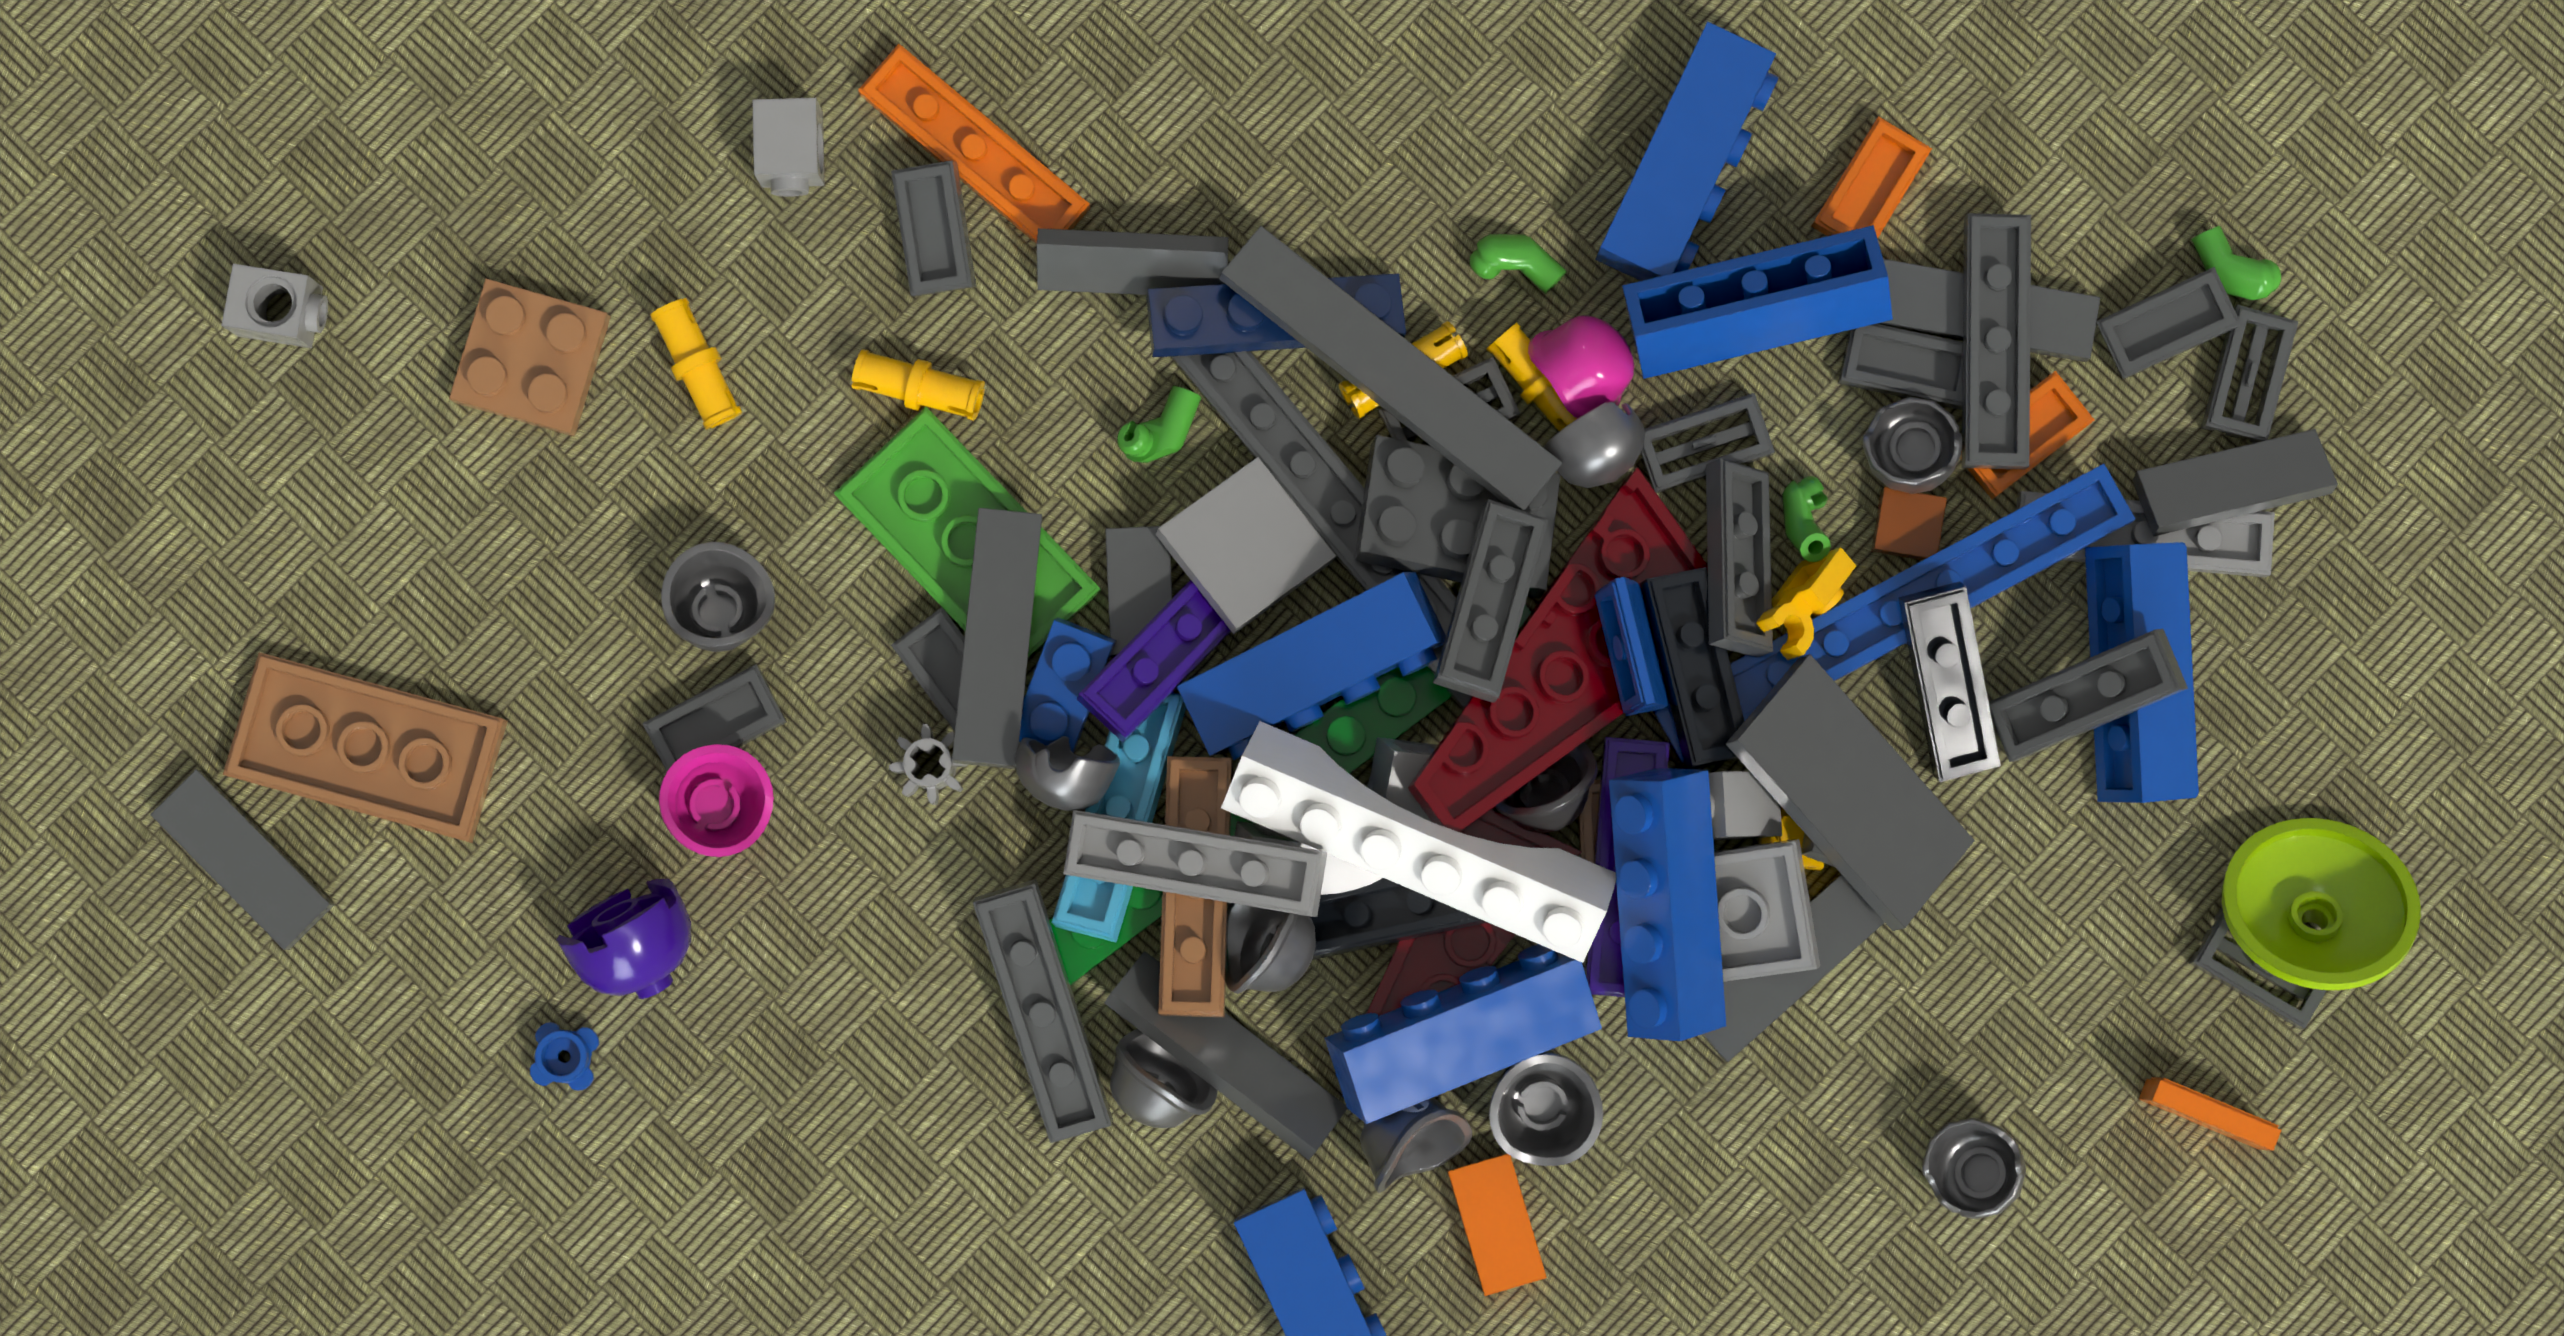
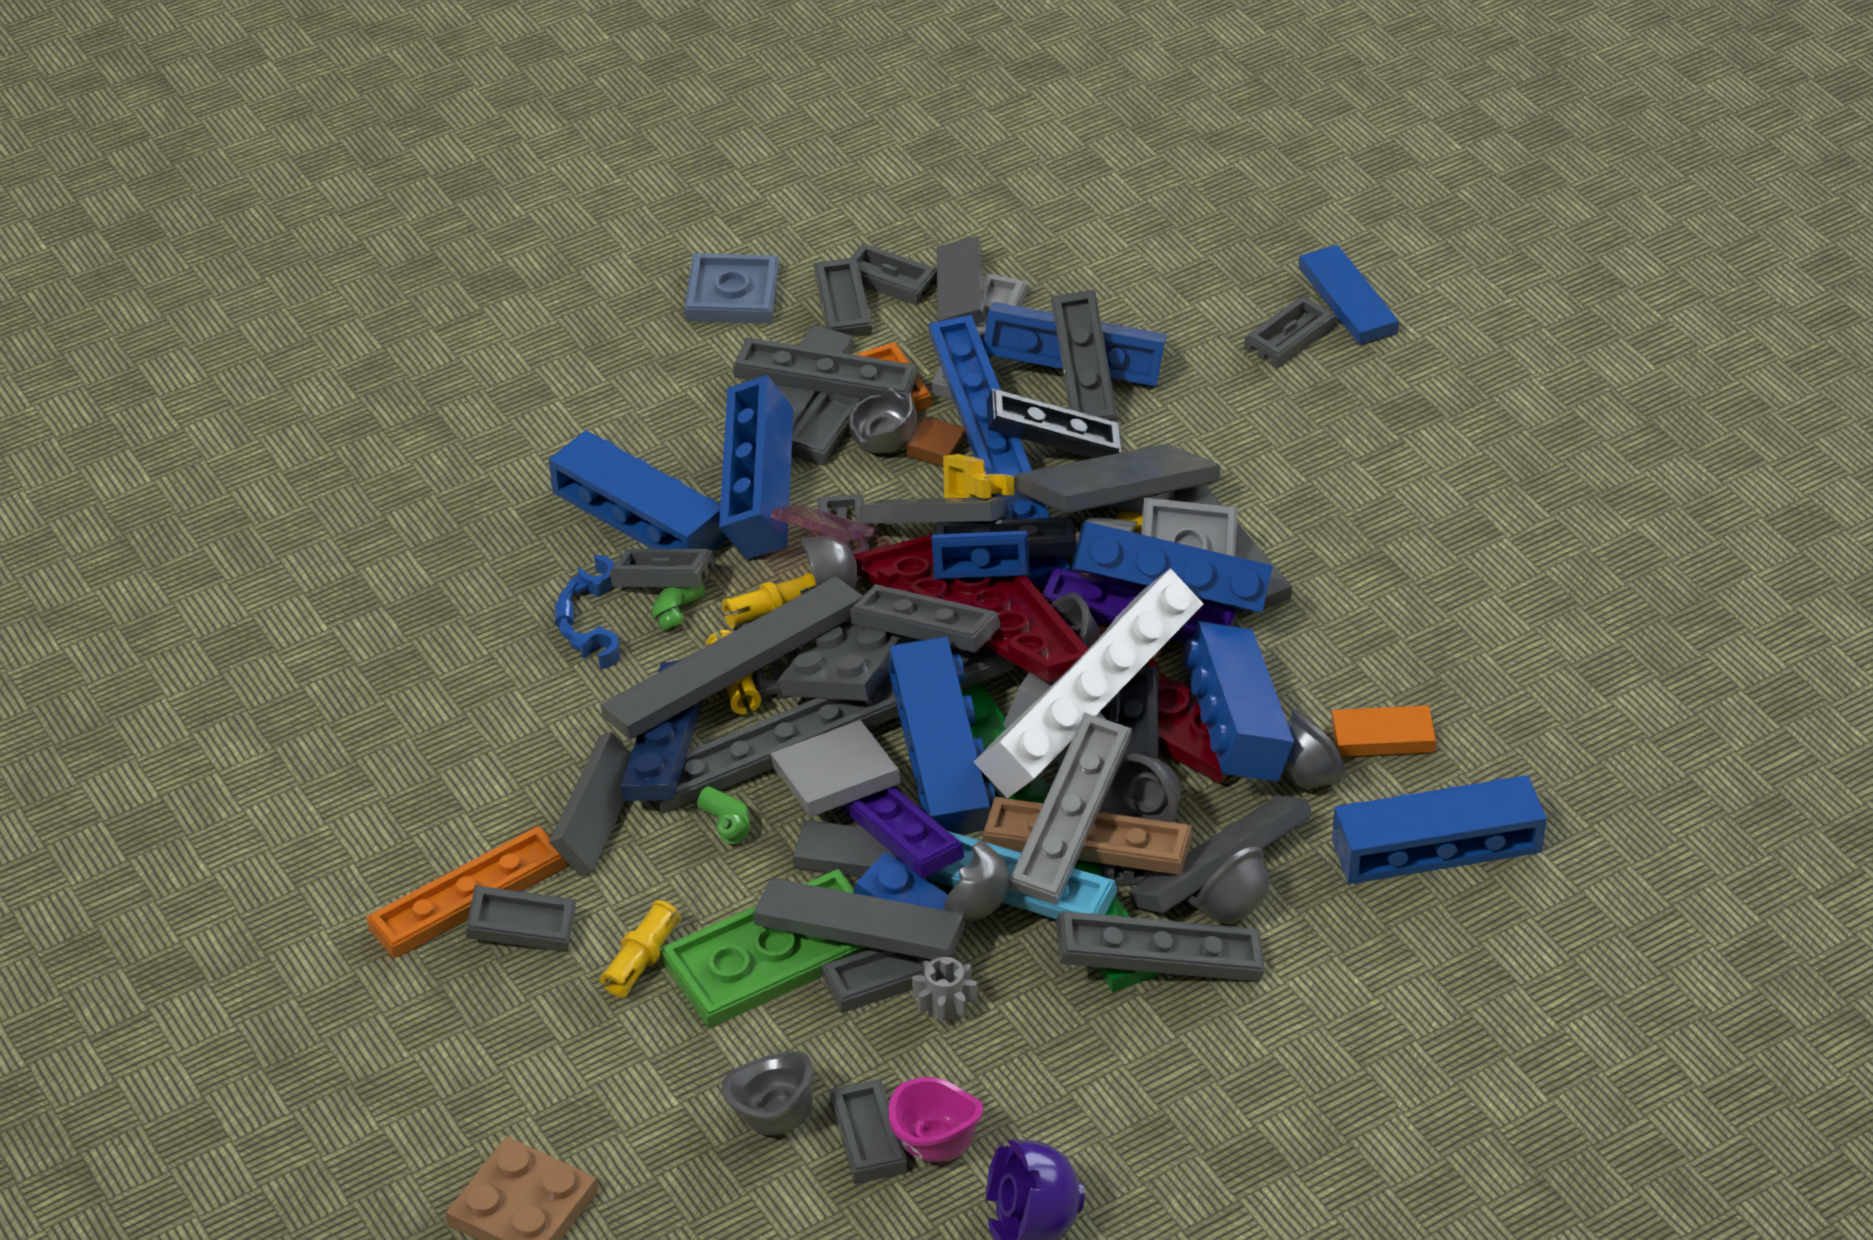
camera: 75 degrees left, 40 degrees down
(696, 363) = (570, 1085): yellow pin -> none
(788, 145) = (418, 991): light grey brick -> none
(1466, 124) = (565, 614): none -> blue piece
(1546, 1110) = (1306, 671): flat silver helmet -> none
(1562, 275) = (662, 568): none -> dark grey tile
(1584, 362) = (764, 557): dark pink helmet -> none
(1670, 418) = (822, 522): none -> clear pink piece
(1799, 523) = (916, 488): bright green arm -> none
(1873, 181) = (690, 422): orange tile -> none
(1974, 1168) = (1395, 471): flat silver hair -> none
(2164, 161) = (732, 288): none -> sand blue tile
(2210, 1113) = (1382, 361): orange tile -> none
(2239, 275) = (804, 272): bright green arm -> none
(2324, 877) = (1254, 280): lime dish -> none
(2362, 1038) = (1348, 294): none -> blue tile

